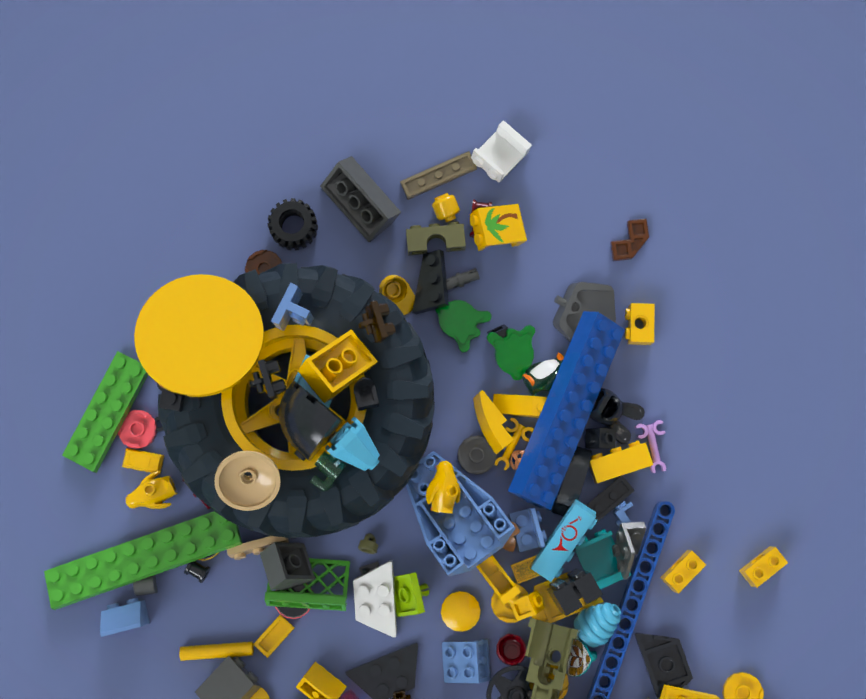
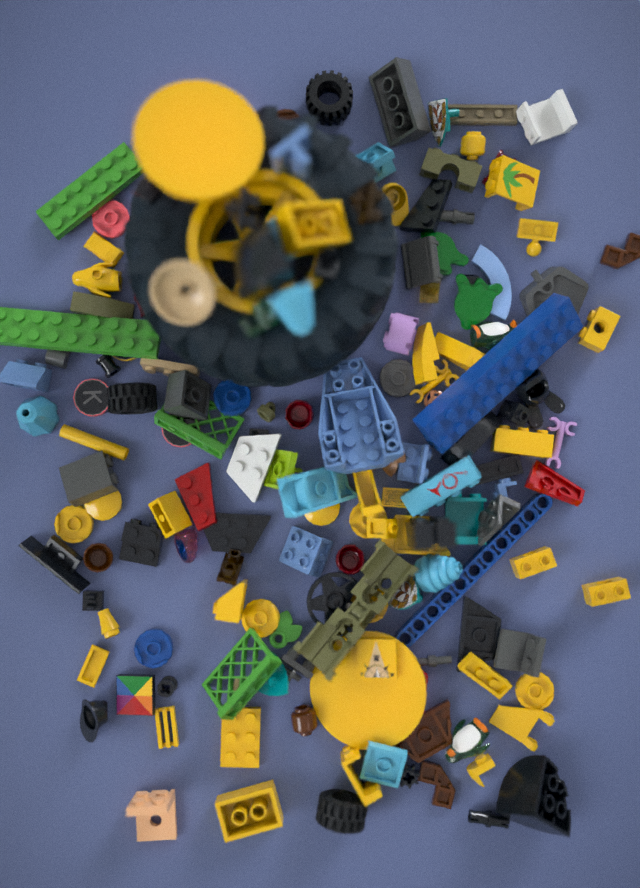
camera: 25 degrees right, 5 degrees up
(151, 650) = (37, 416): none -> medium azure cone
(166, 517) = (100, 306): none -> olive slope
(196, 608) = (91, 397): none -> black tile
(235, 592) = (132, 398): none -> black tyre
(273, 636) = (149, 452): yellow tile -> none
(329, 548) = (231, 398): none -> blue tile
(338, 655) = (198, 495): none -> red wing
(362, 263) = (381, 159): none -> medium azure bracket
(400, 533) = (299, 414): none -> dark red hair
(404, 197) = (440, 118): none -> shield
(443, 489) = (355, 392): yellow animal -> none
(447, 601) = (313, 491): none -> medium azure piece
(448, 337) = (421, 262): none -> dark grey piece
(460, 413) = (401, 333): none -> lavender brick
(469, 361) = (429, 293): none -> clear yellow tile
(524, 316) = (496, 273): none -> light blue tile
(541, 259) = (536, 231): none -> yellow plate
(665, 488) = (553, 484): none -> red wing
(710, 662) = (520, 652): none -> dark grey bracket

